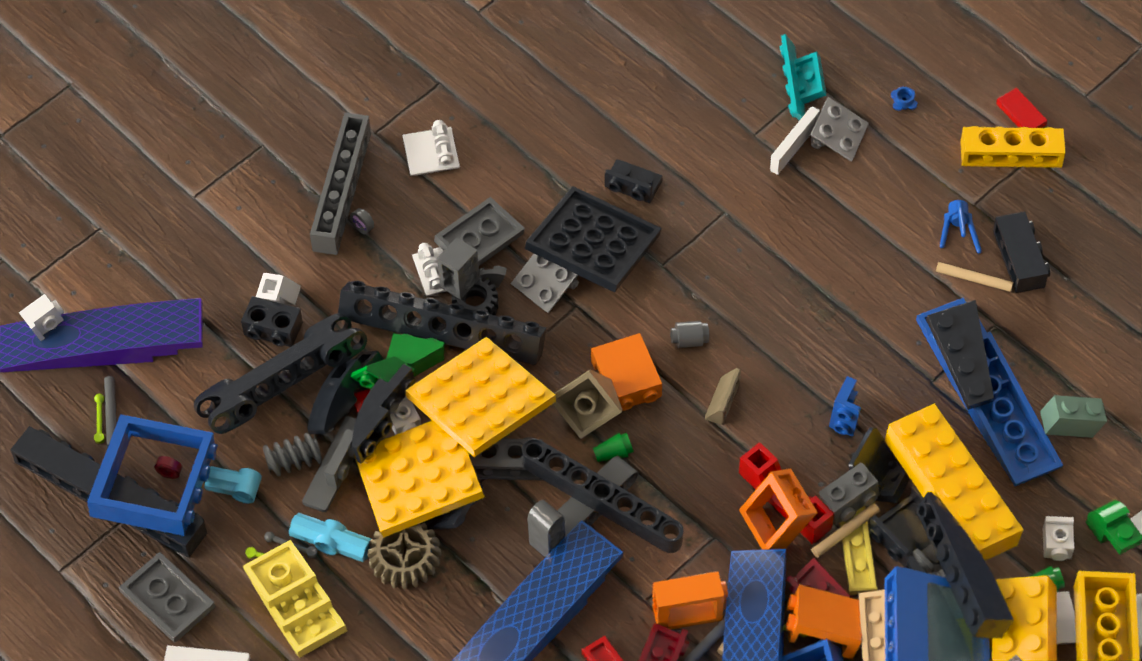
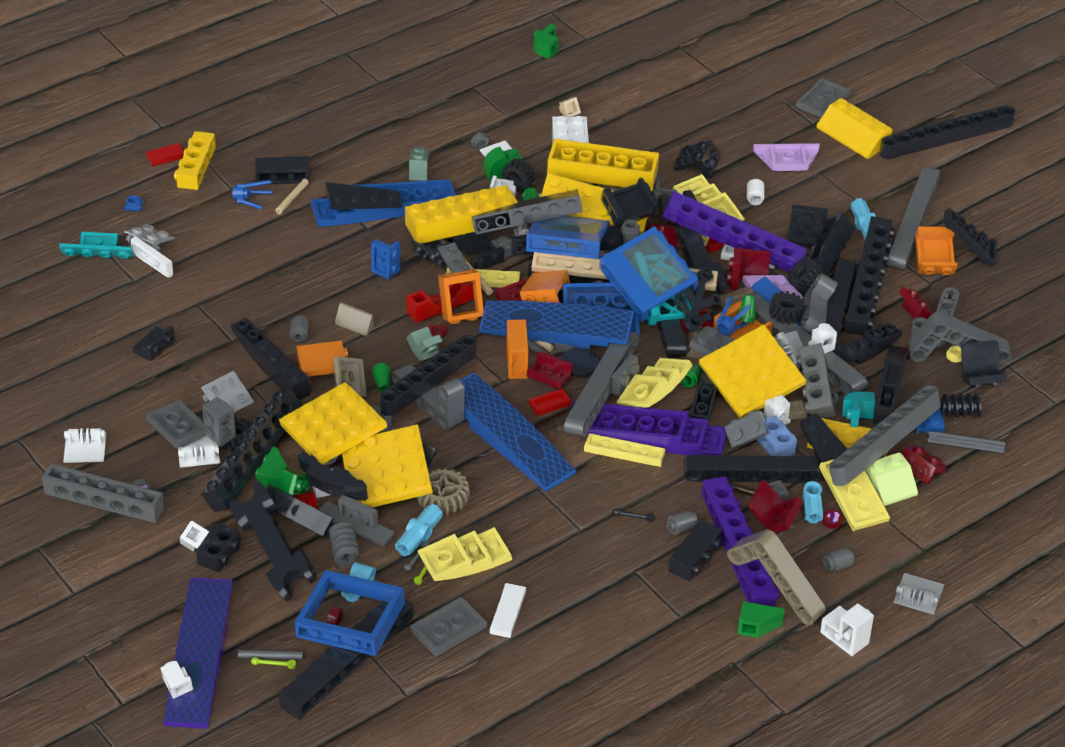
camera: 85 degrees left, 15 degrees down
(593, 239) = (206, 360): black plate -> none
(617, 312) = (271, 359): none -> black slope
(686, 486) = (423, 344): none -> sand green brick
(723, 501) = (438, 330): none -> dark red tile
(1088, 550) = (523, 169): none -> black tyre

